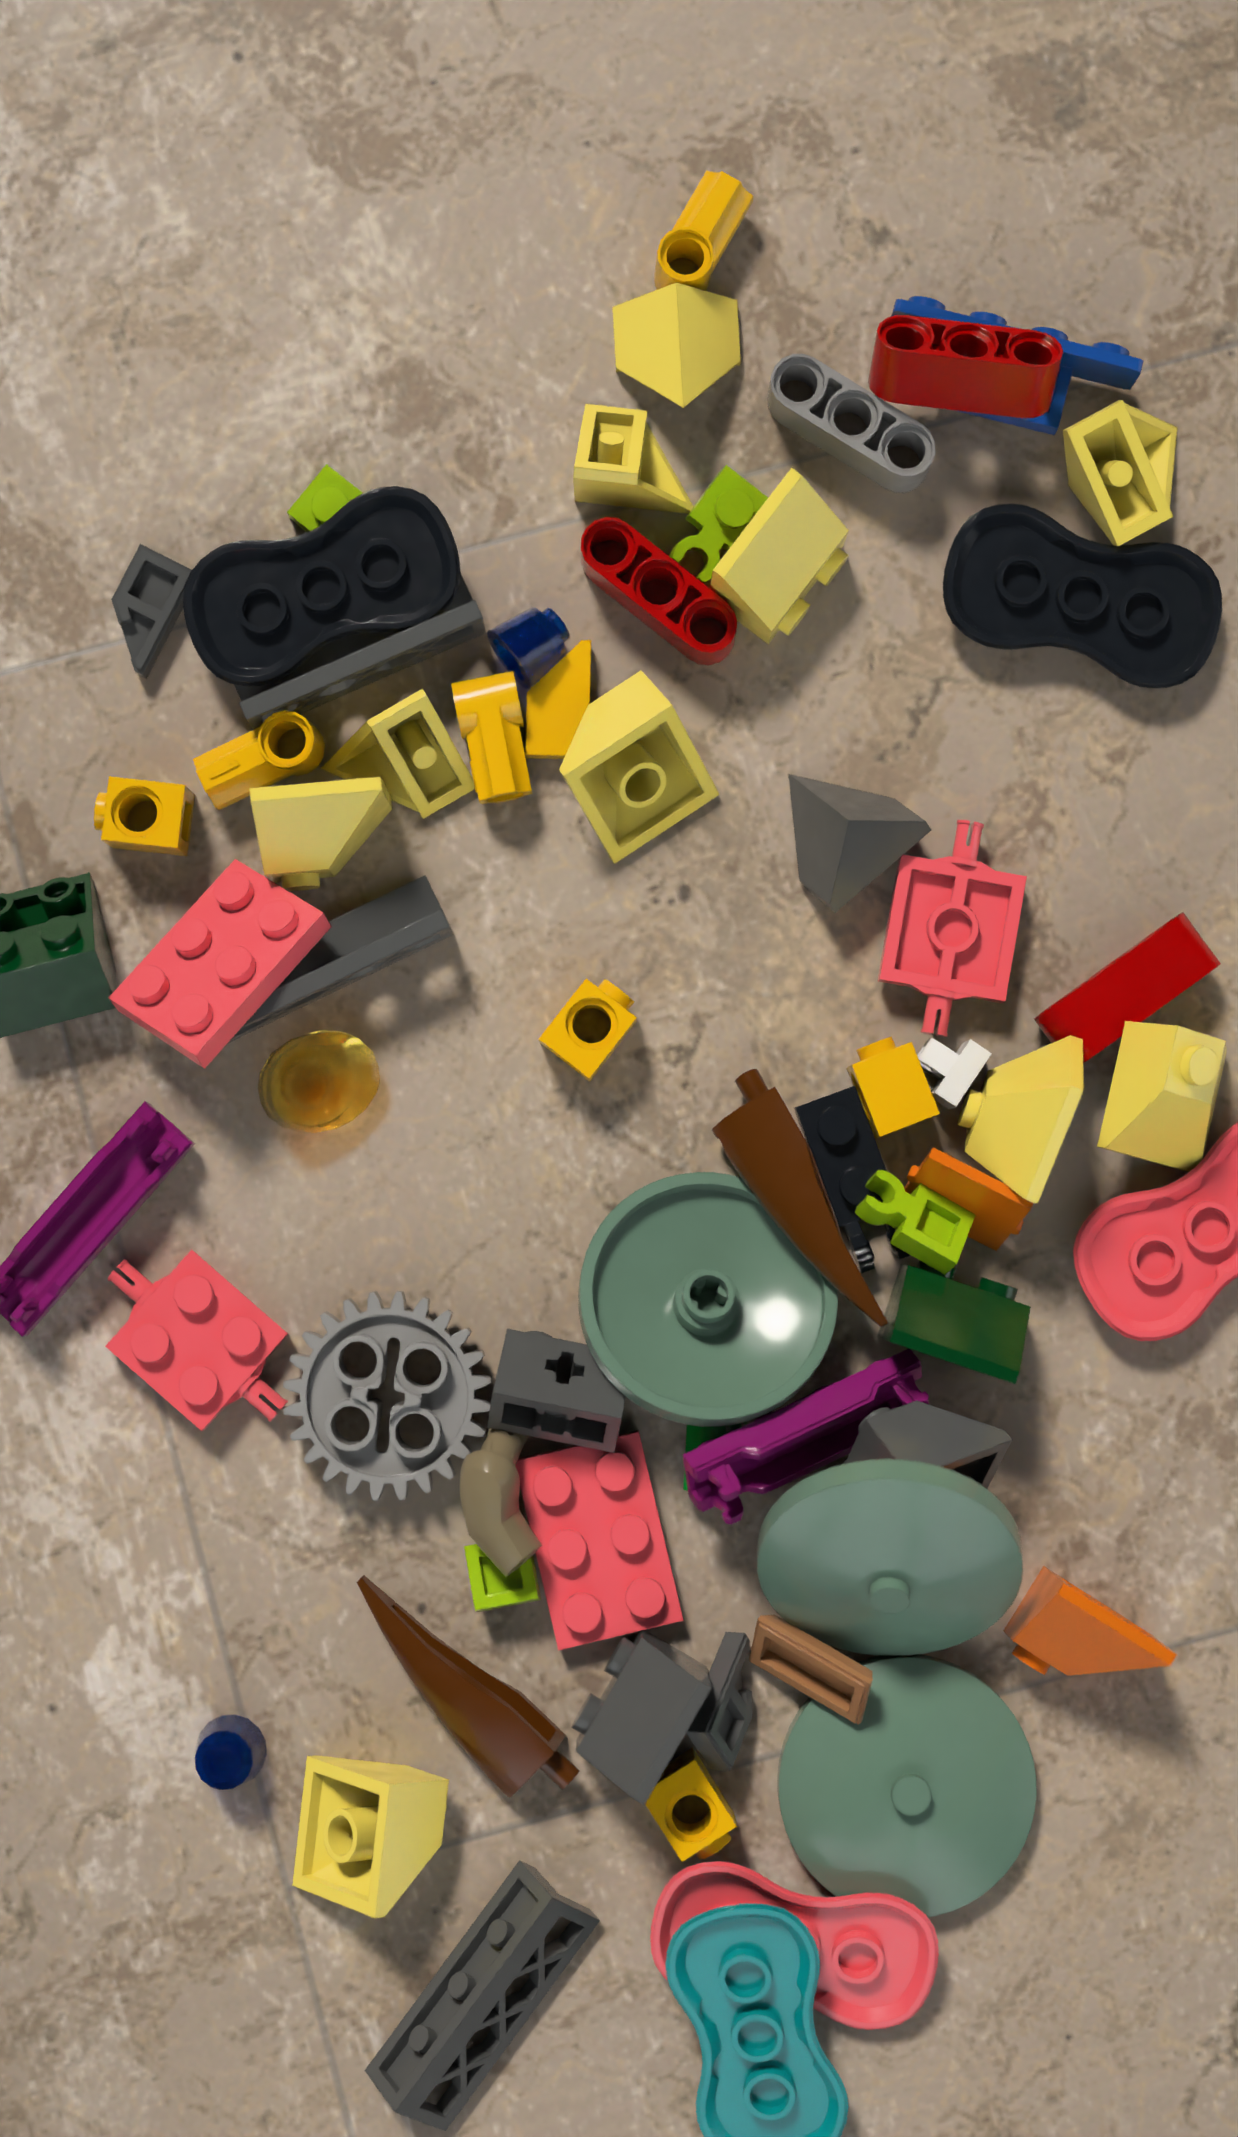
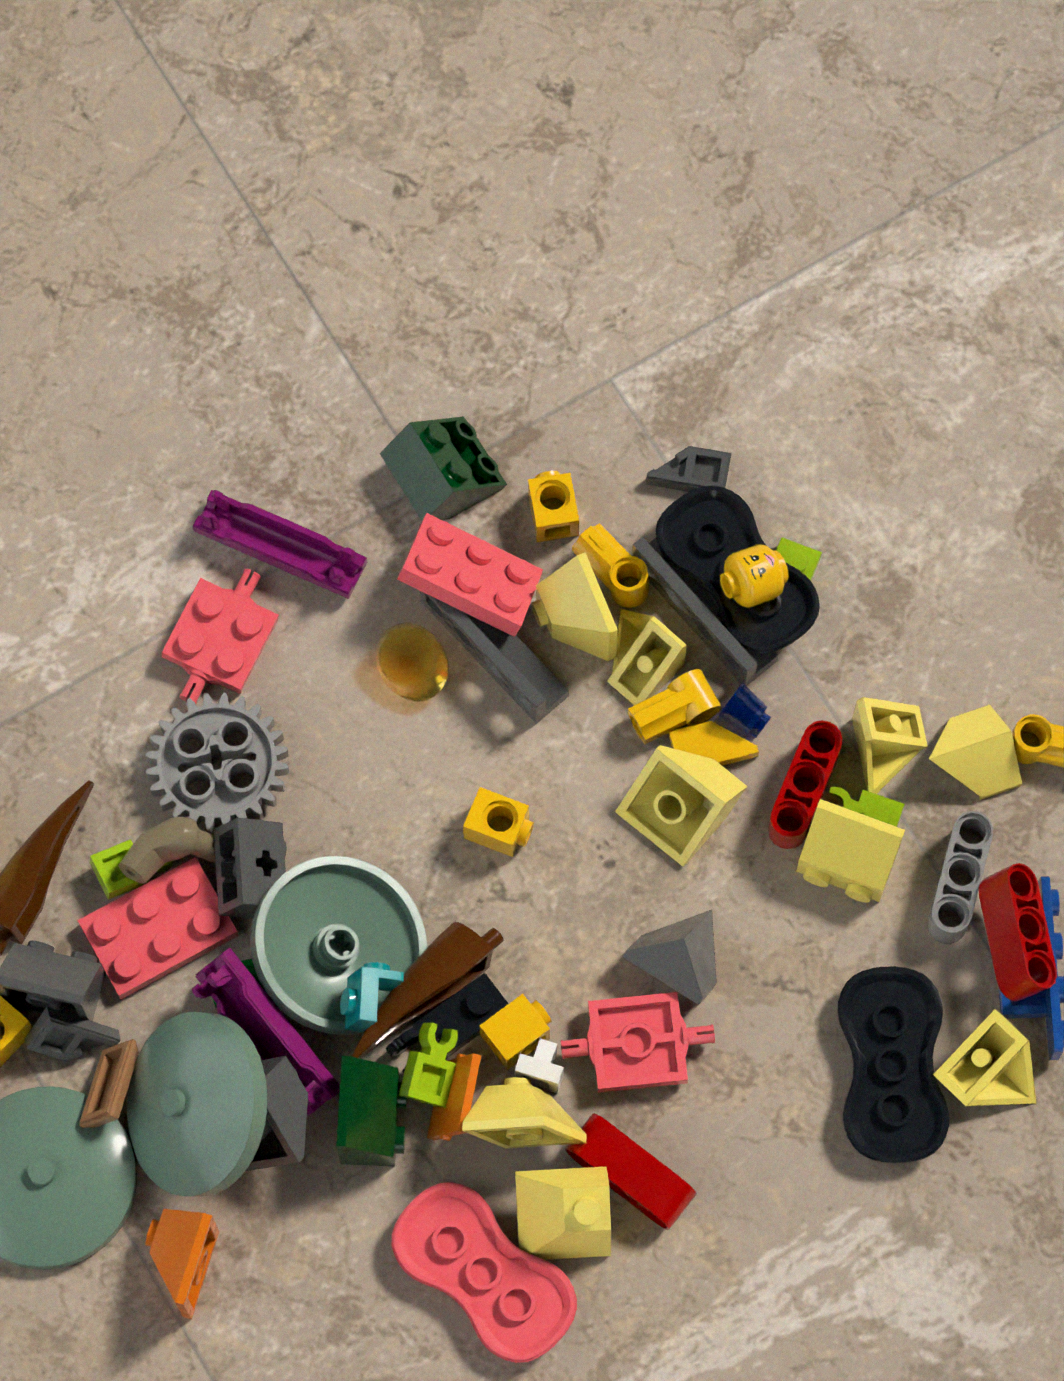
camera: 75 degrees right, 15 degrees down
(348, 562) = (754, 575): none -> yellow head
(802, 1289) = (360, 997): none -> teal bracket

